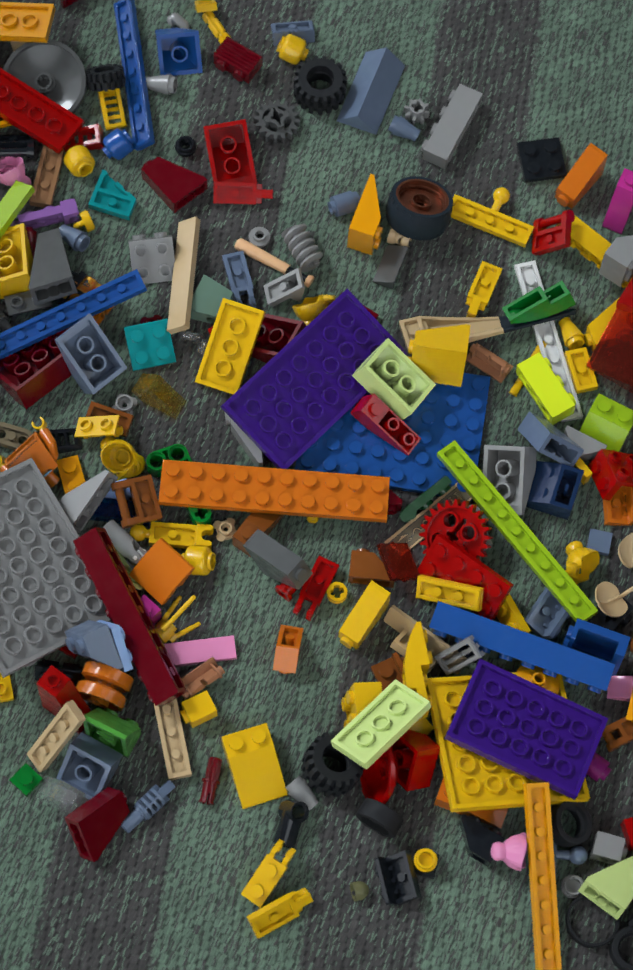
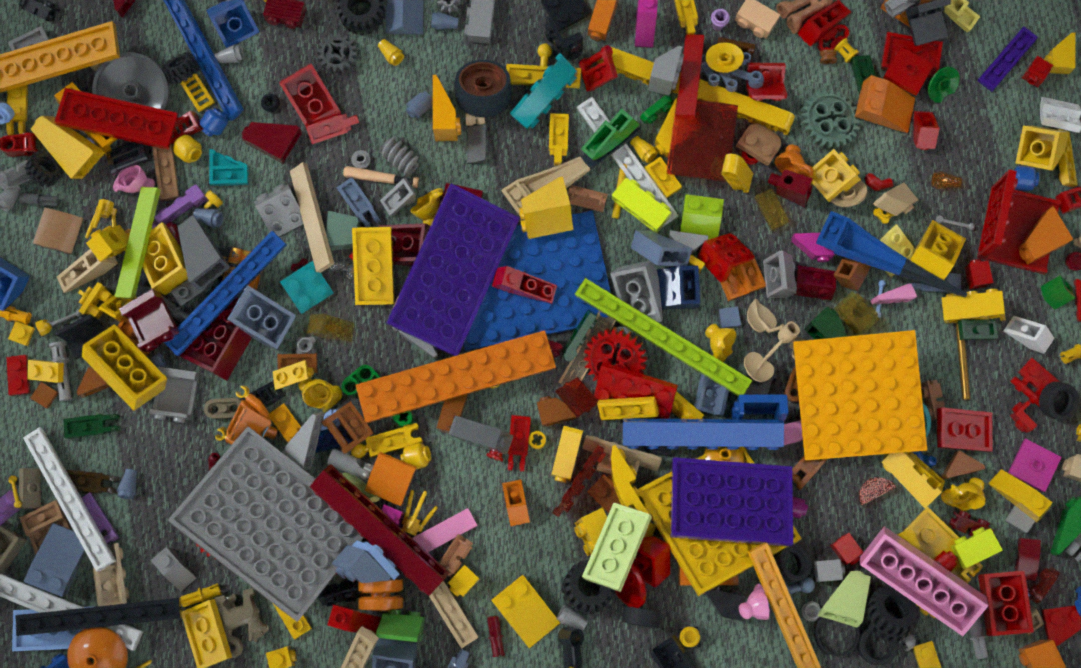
camera: 15 degrees left, 10 degrees up
(220, 525) = (422, 420): tan plate -> none
(335, 141) = (391, 52): none -> yellow cone
(367, 647) = (577, 487): none -> clear red wing
(394, 379) = (518, 246): yellowish green slope -> none
(472, 647) = (663, 450): light grey tile -> none
(484, 236) = (544, 92): none -> teal wedge
(527, 199) = (569, 47): none -> black bracket
(594, 299) = (650, 115): none -> green plate

